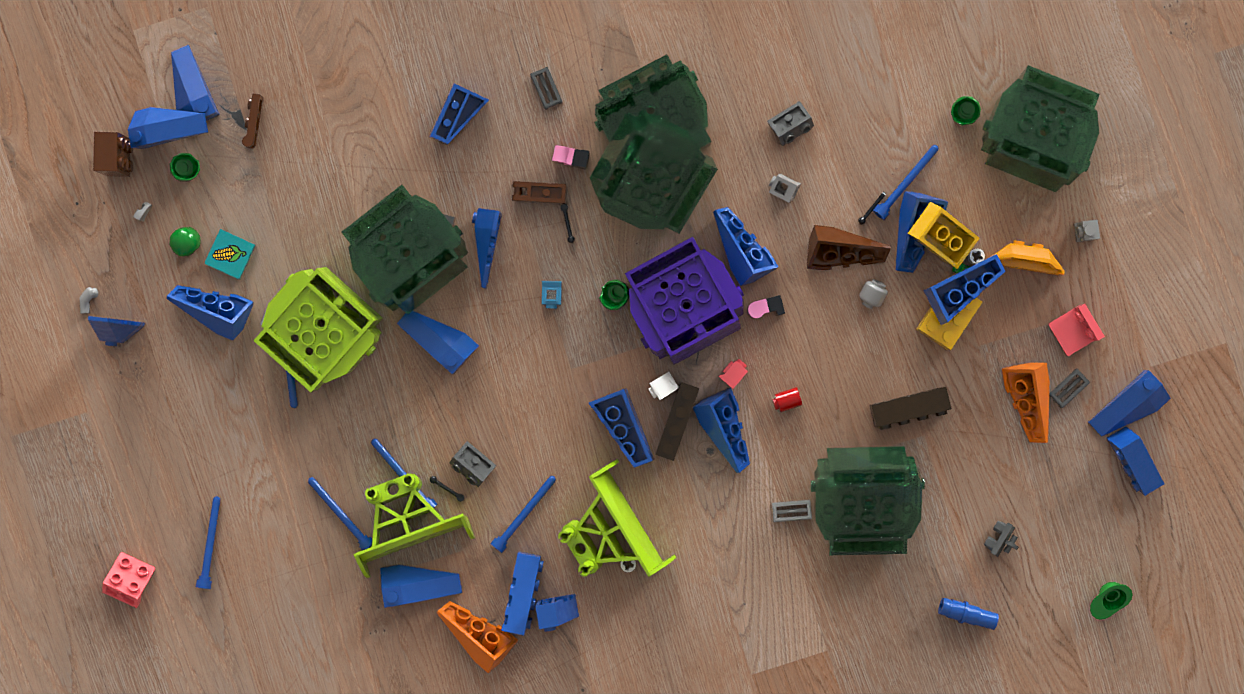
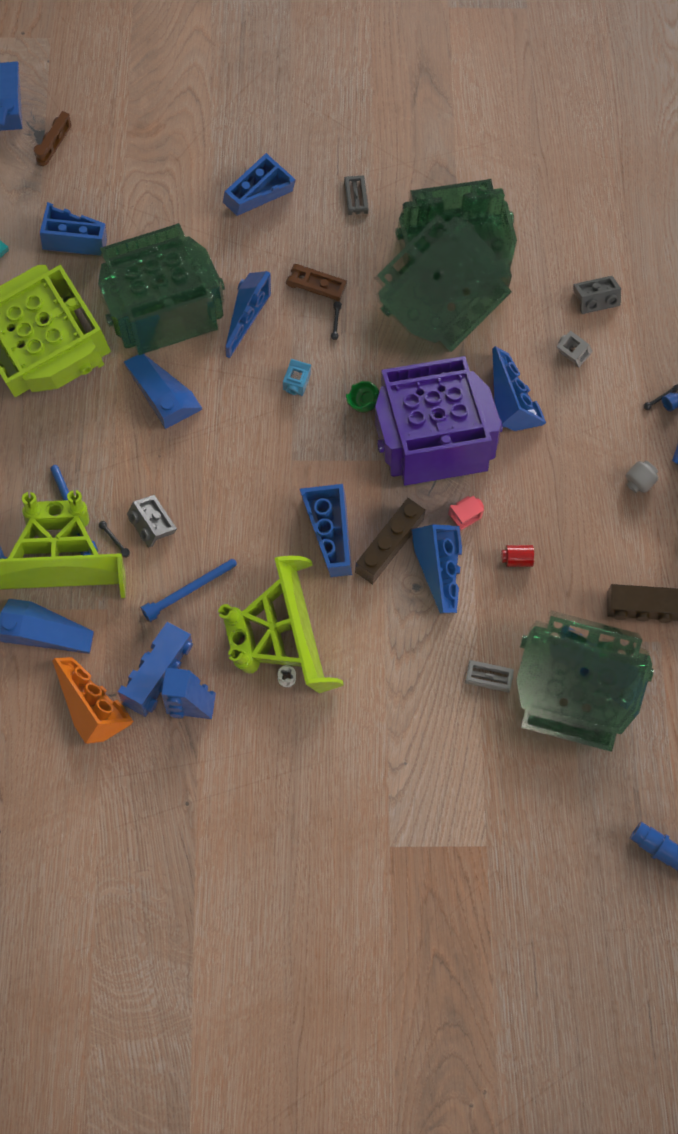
camera: 10 degrees right, 20 degrees down
(307, 216) = (71, 233): none -> blue wedge
(571, 157) = (361, 259): leg -> none
(662, 386) = (384, 496): white slope -> none
(760, 307) = (521, 457): leg -> none
(838, 247) = (617, 424): reddish brown wedge -> none

